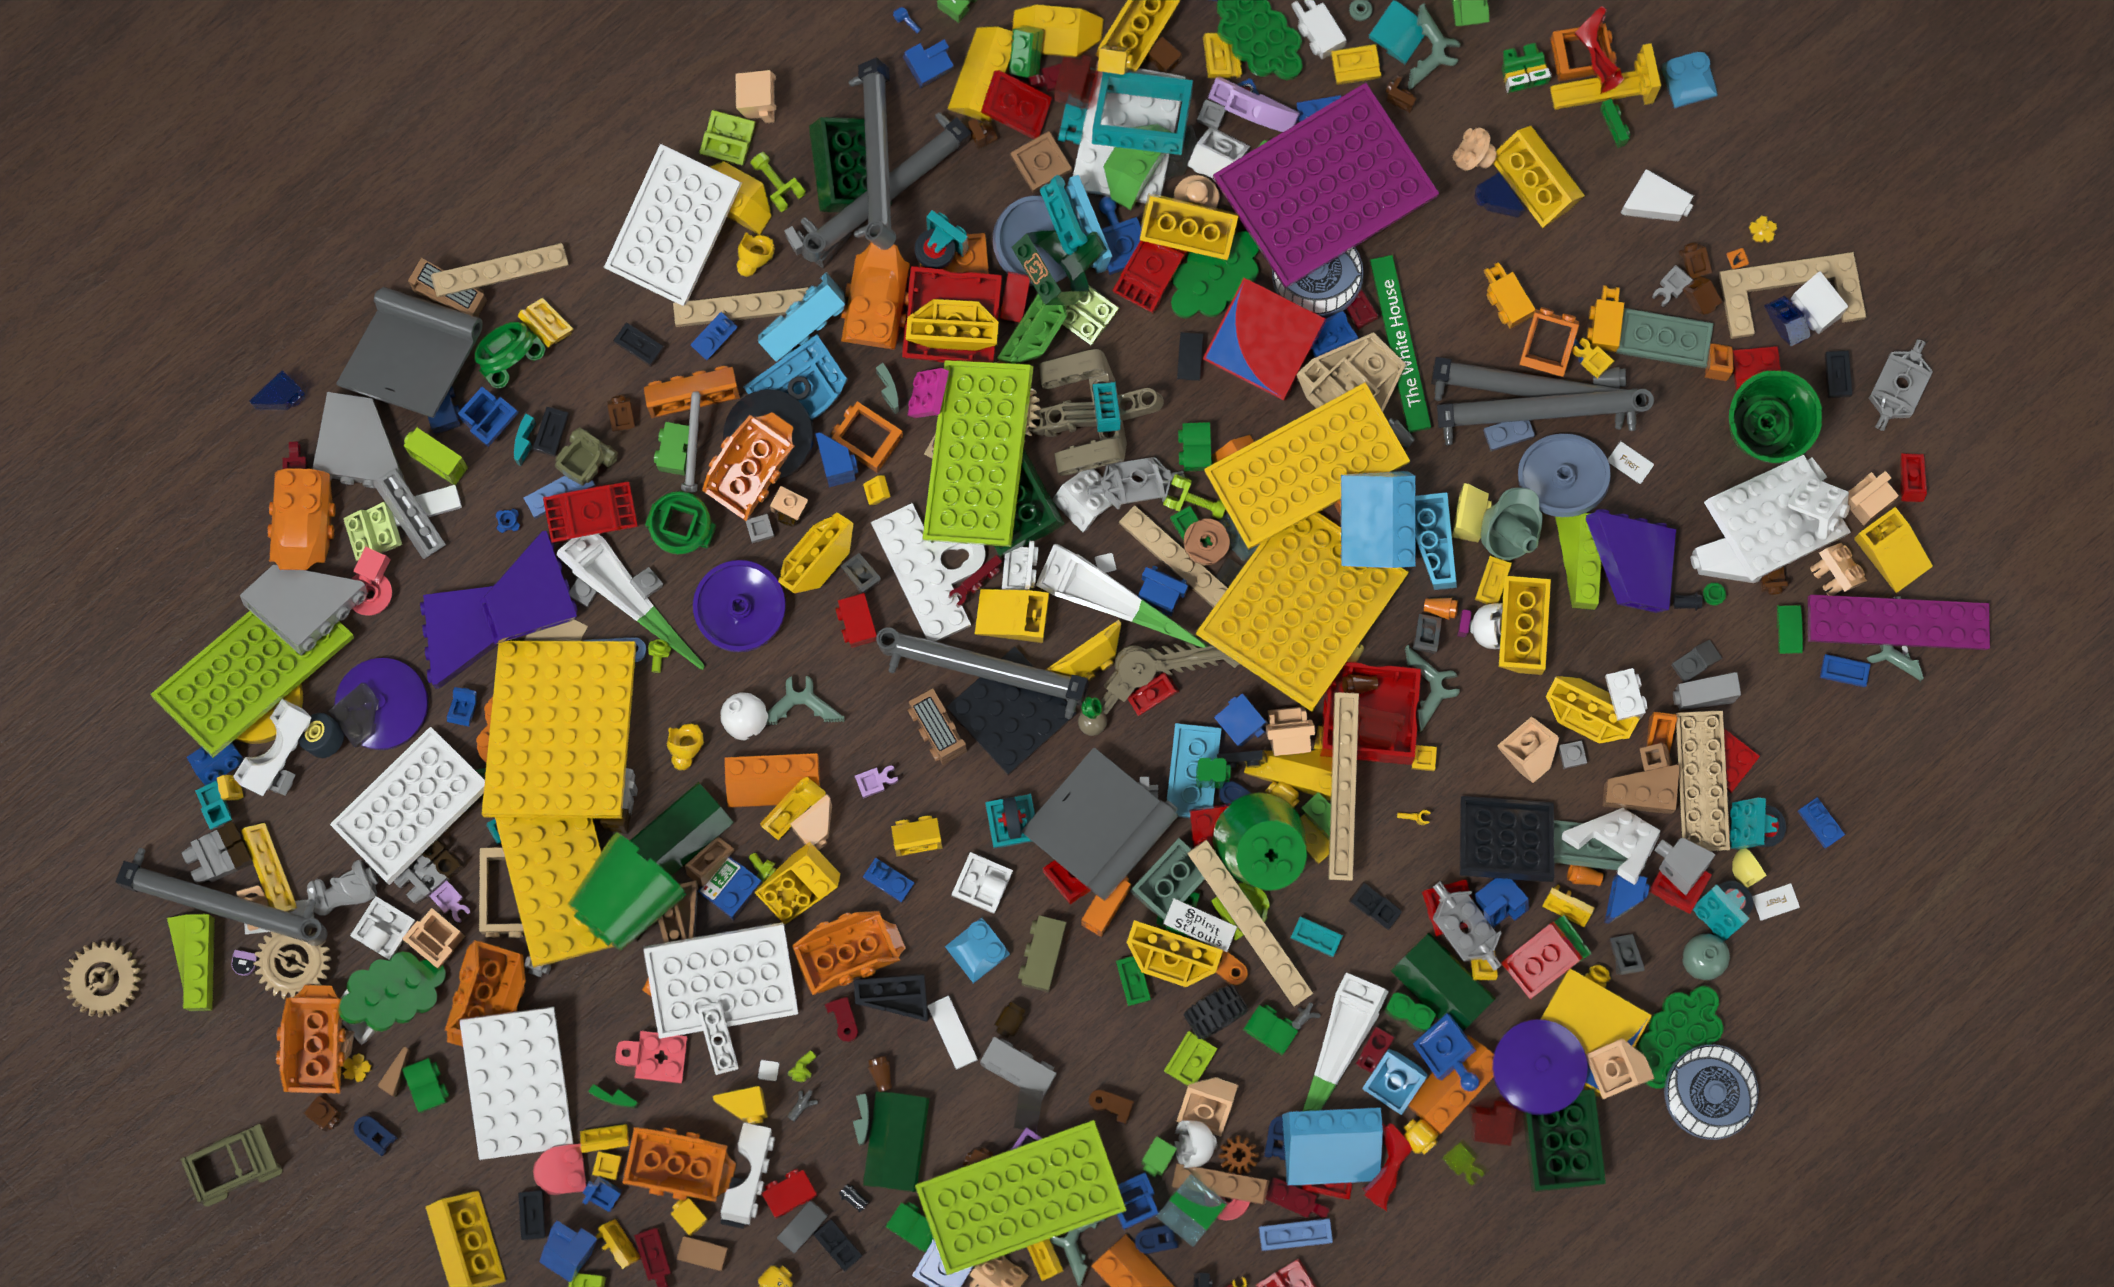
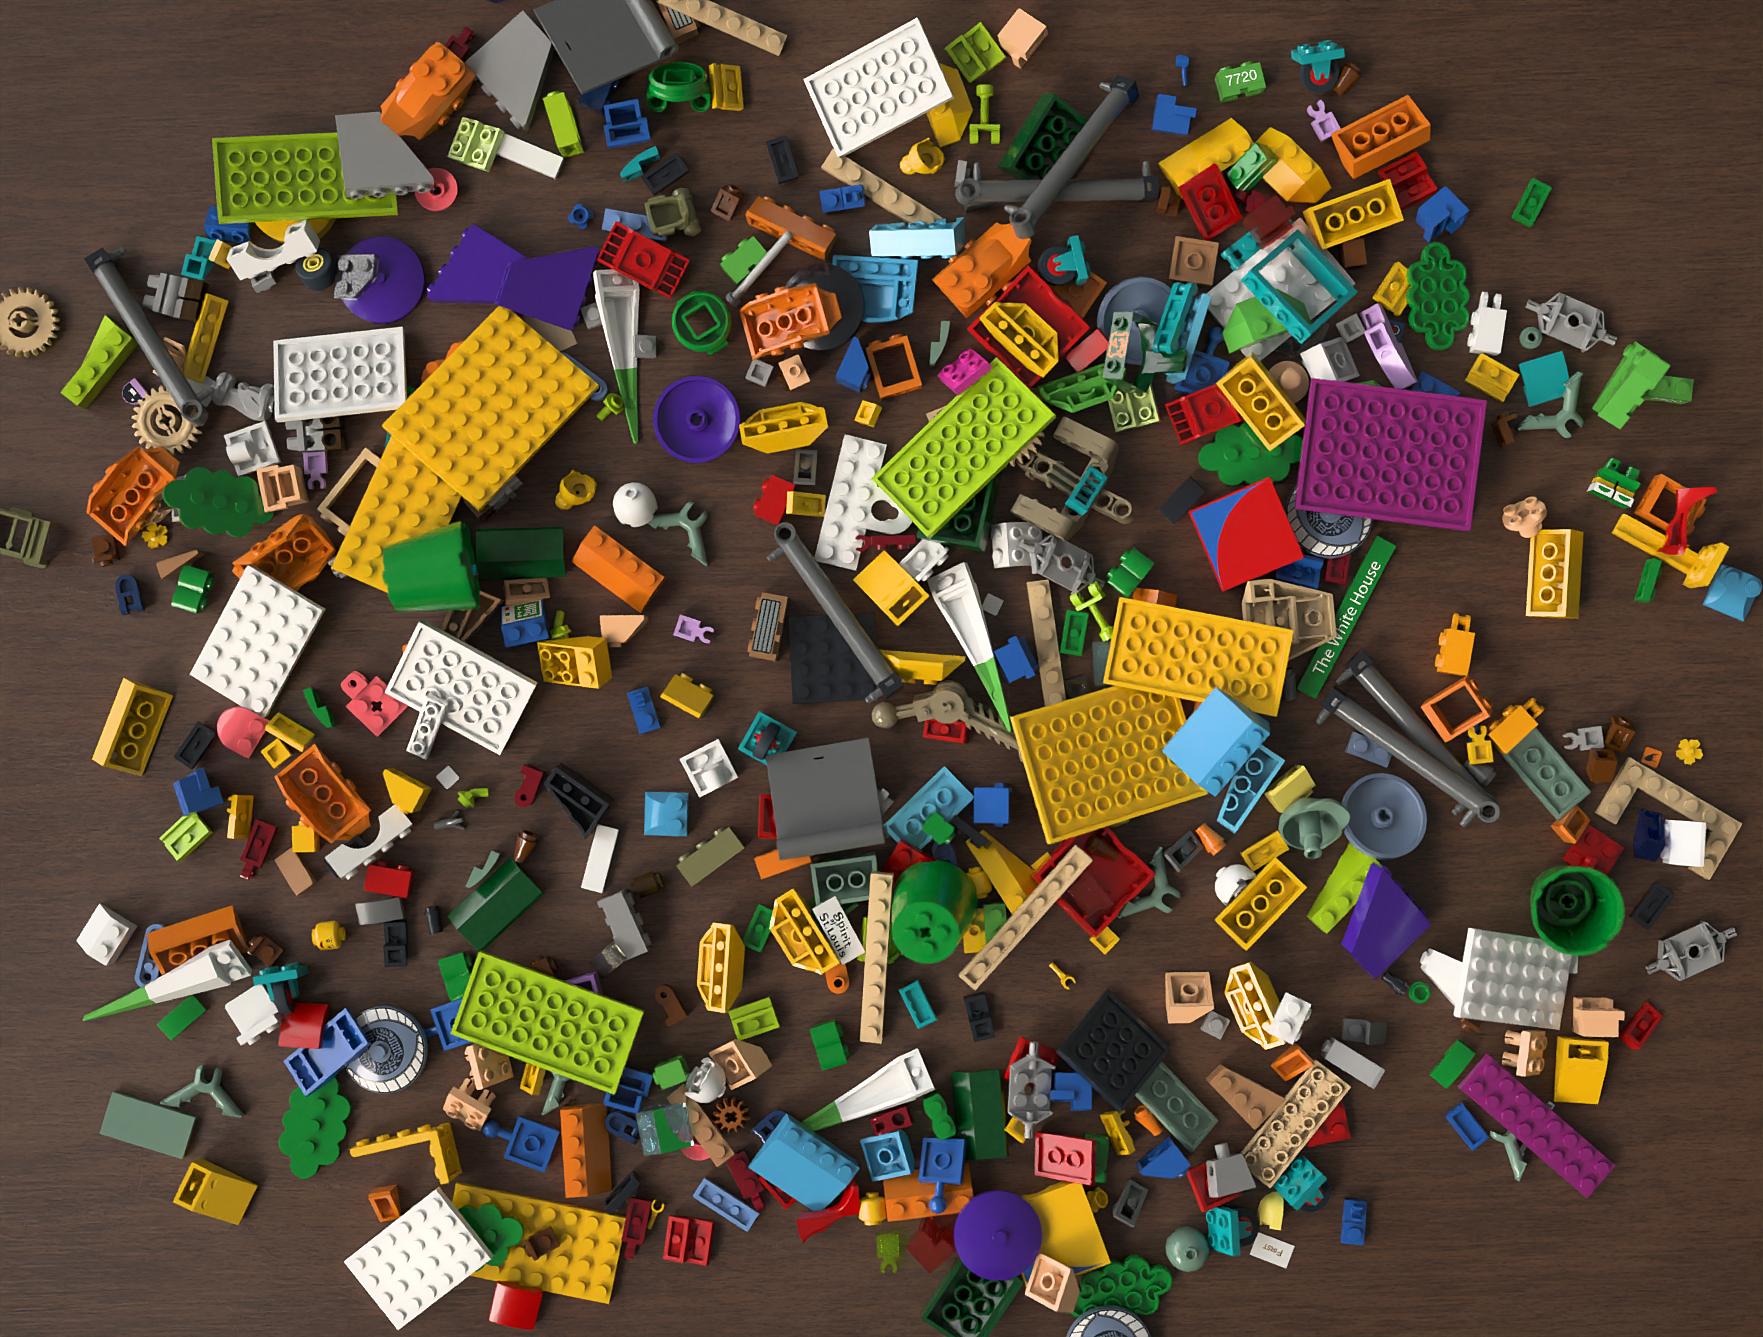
camera: 40 degrees right, 10 degrees up
(371, 566) = (451, 171): coral brick -> none
(409, 513) = (511, 152): light grey slope -> none
(462, 706) = (436, 331): blue bracket -> none
(601, 1193) = (256, 770): blue bracket -> none
(792, 806) = (615, 601): yellow plate -> none
(807, 391) = (866, 284): black piece -> none
(847, 949) = (570, 740): orange slope -> none
(885, 602) = (806, 504): none -> yellow plate
(1091, 707) = (890, 707): green plate -> none
(1114, 59) = (1312, 228): yellow brick -> none
(1126, 1037) = (720, 967): none -> yellow wedge
(1211, 554) = (1065, 648): nougat plate -> none
(1215, 1011) = (798, 1002): black tyre -> none
(1289, 731) = (1021, 841): light nougat plate -> none
(1304, 1015) = (860, 1055): dark grey bar -> none
(1464, 623) = (1217, 864): magenta tile -> none
(1498, 197) = (1512, 566): clear blue slope -> none
(1622, 833) = (1202, 1116): white wing -> none
(1630, 462) = (1440, 844): white sticker -> none
(1655, 757) = (1273, 1079): medium nougat brick -> none
(1657, 199) = (1630, 664): white slope -> none
(1821, 502) = (1555, 994): white bracket -> none

